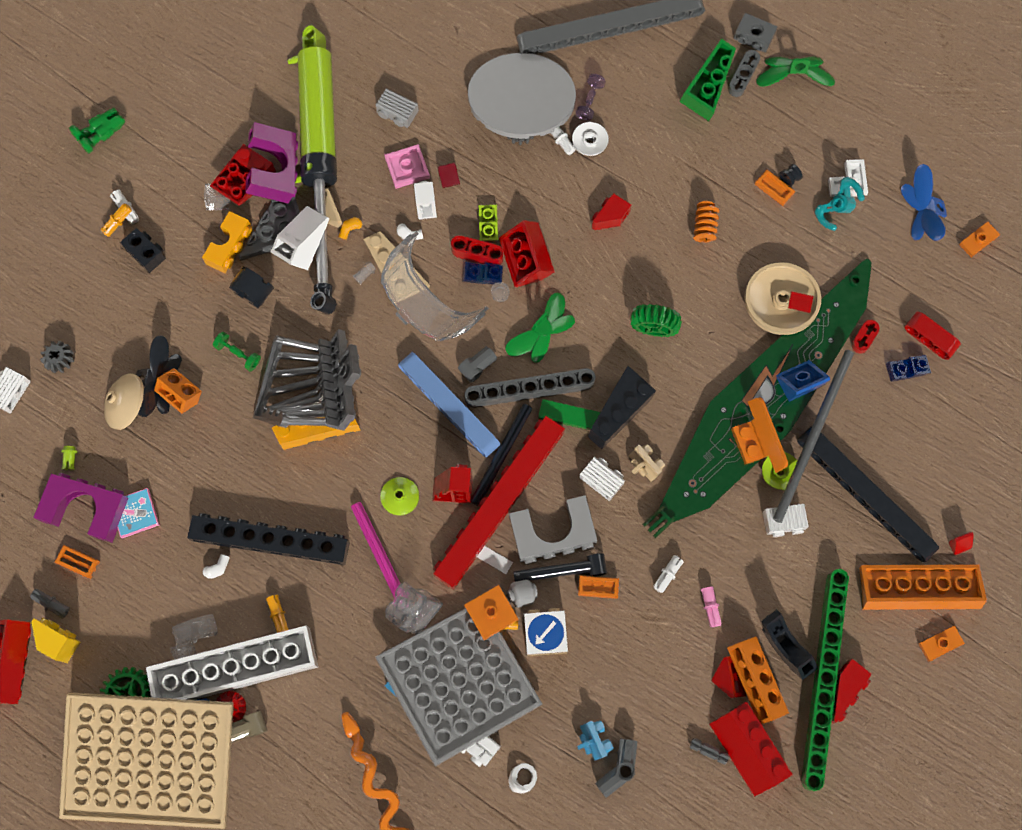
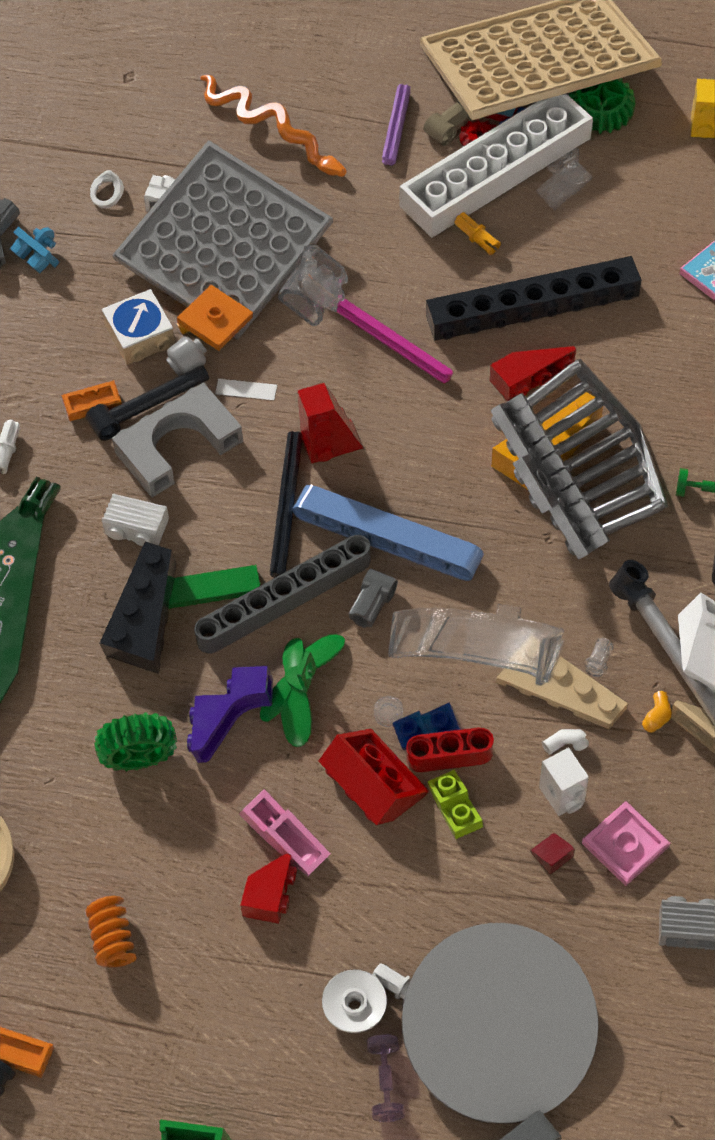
camera: 160 degrees right, 15 degrees down
(217, 569) = (576, 253): white arm -> none
(283, 747) = (396, 125): none -> medium lavender axle
(306, 484) = (528, 369): none -> red slope
(401, 505) = (397, 419): lime dish -> none
(499, 502) = (260, 448): red brick -> none
(590, 243) = (284, 832): none -> bright pink slope
(603, 325) = (216, 714): none -> dark purple arch
(644, 464) = (92, 568): tan hips -> none

